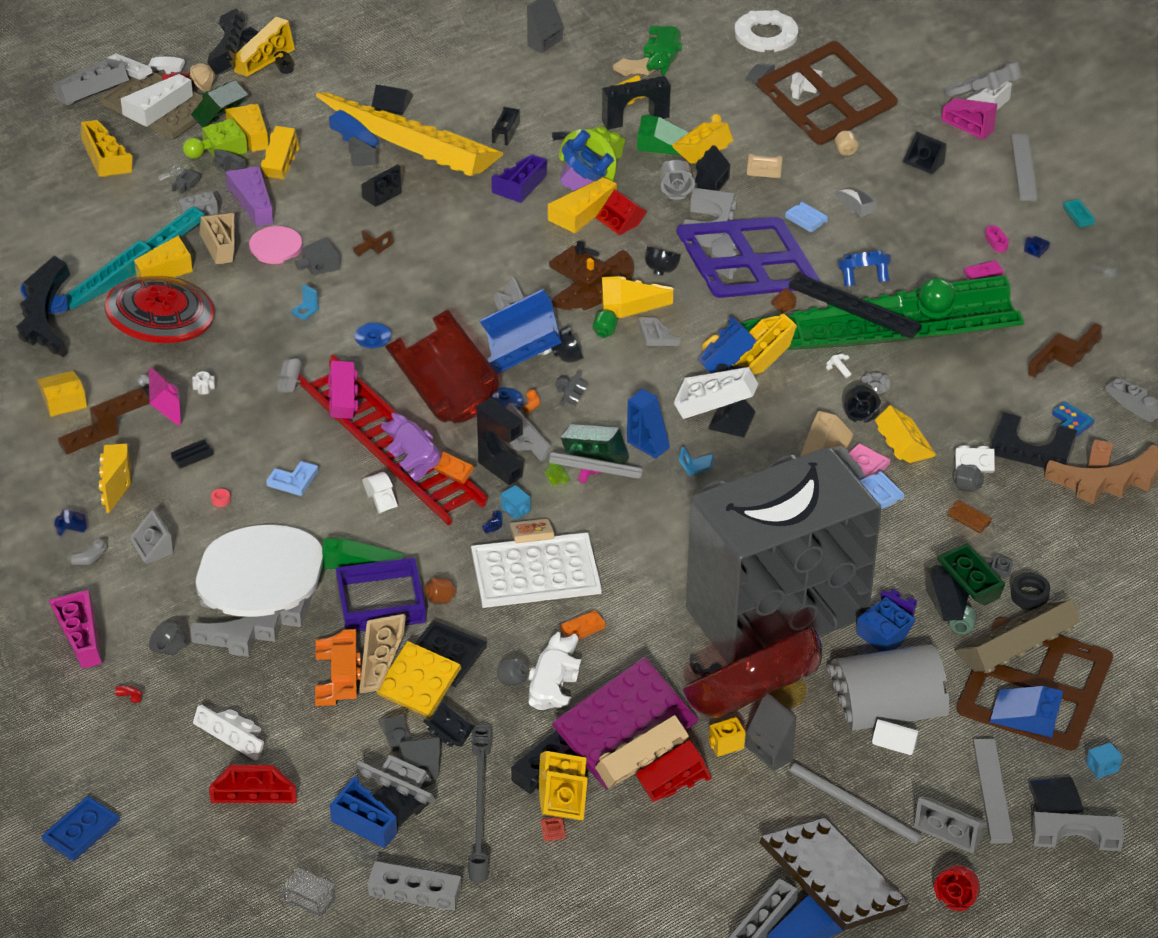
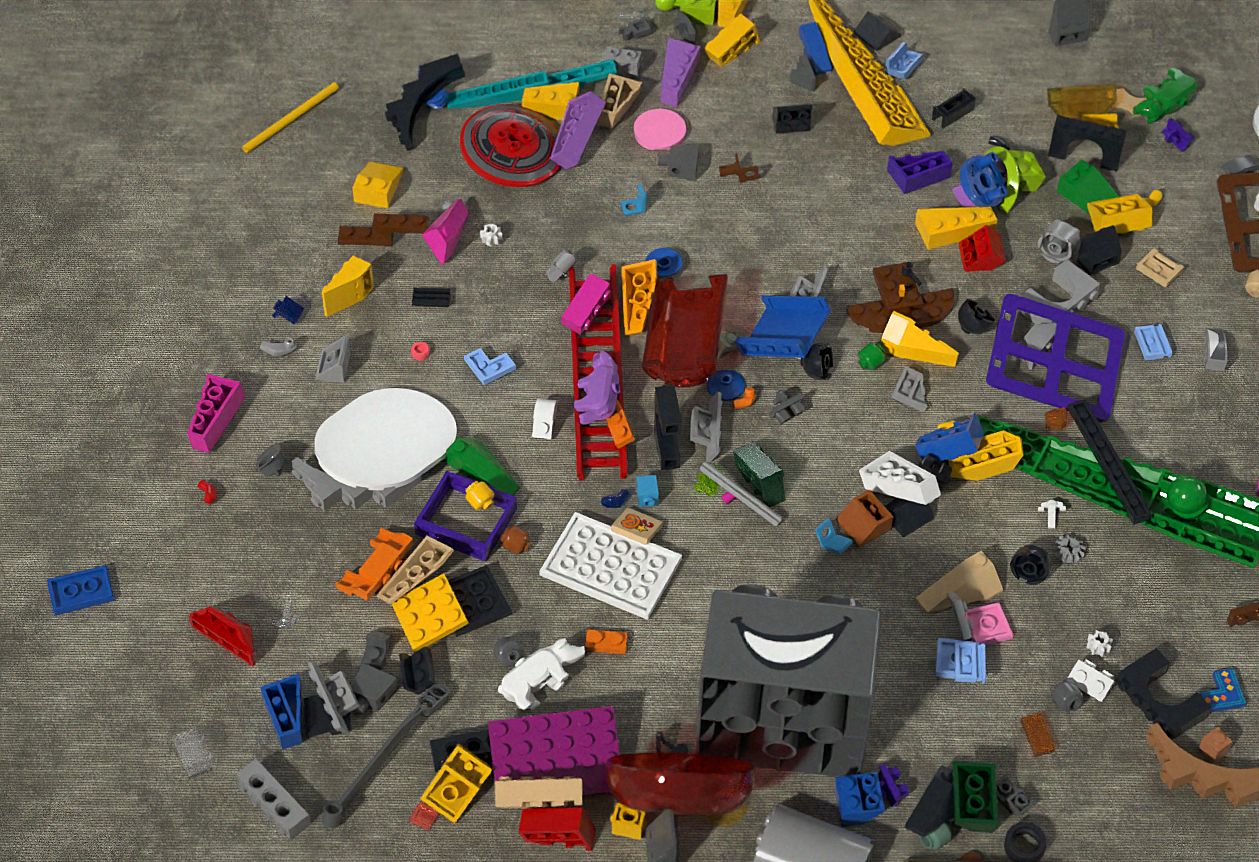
camera: 35 degrees right, 10 degrees up
(210, 269) = (576, 129): none -> medium lavender wedge
(231, 729) = (256, 571): white bracket -> none
(295, 753) = (285, 621): none -> clear piece
(375, 362) = (638, 289): none -> light orange wedge
(385, 569) = (479, 495): none -> yellow head
(434, 111) = (902, 62): none -> medium blue bracket
(602, 75) = (1081, 100): none -> clear yellow wedge
(646, 424) = (813, 479): blue wedge -> none
(694, 71) = (1175, 133): none -> dark purple hips
(708, 434) = (865, 518): none -> dark orange slope
(864, 259) = (1157, 418): blue piece -> none
(903, 436) = (1046, 619): yellow slope -> none
(957, 432) = (1099, 643): none -> white gear

